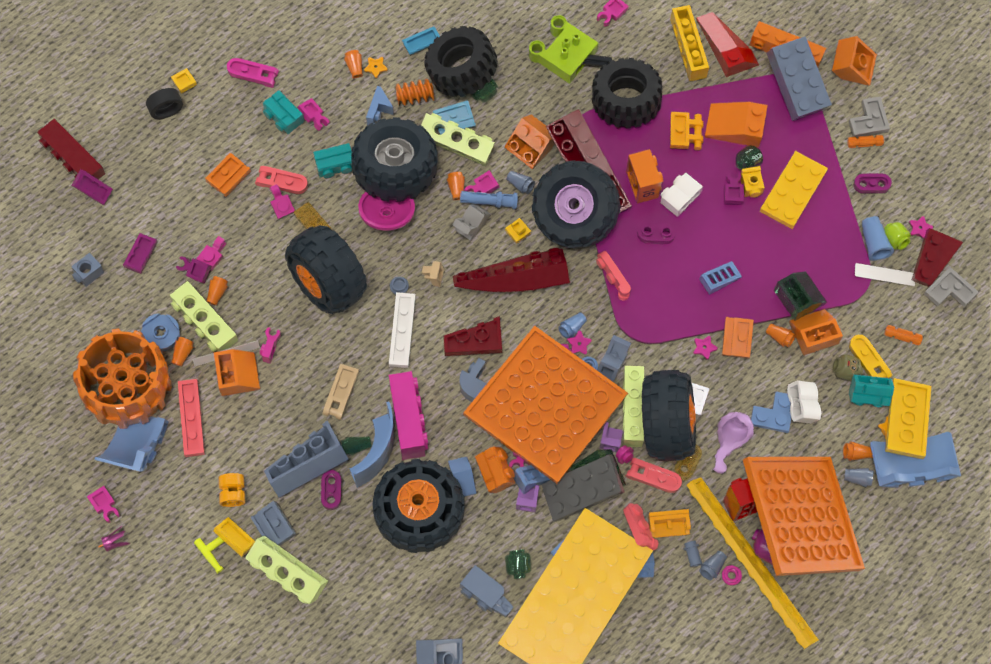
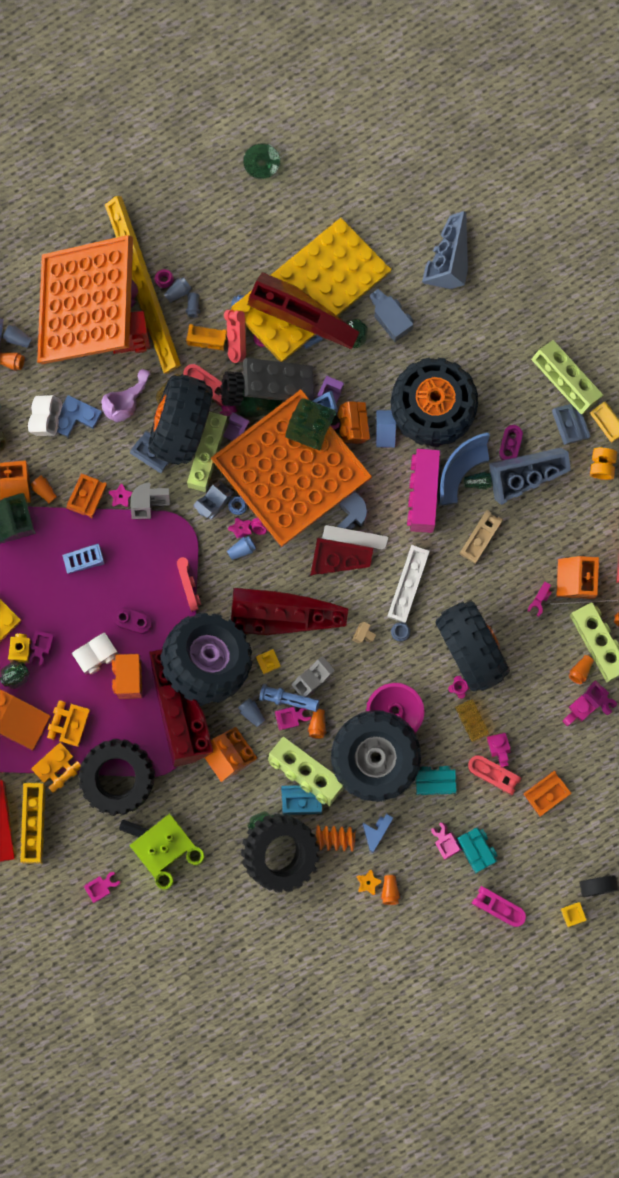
camera: 165 degrees left, 10 degrees up
(420, 40) = (312, 902): dark azure tile -> none
(464, 358) = (355, 537): none -> white sticker
(537, 446) = (310, 423): none -> clear green bracket
(583, 562) = (299, 309): none -> dark red wedge
(626, 466) = (232, 388): none -> black tyre
(682, 344) = (144, 497): none -> light grey brick
(688, 97) = (52, 763): none -> light orange plate

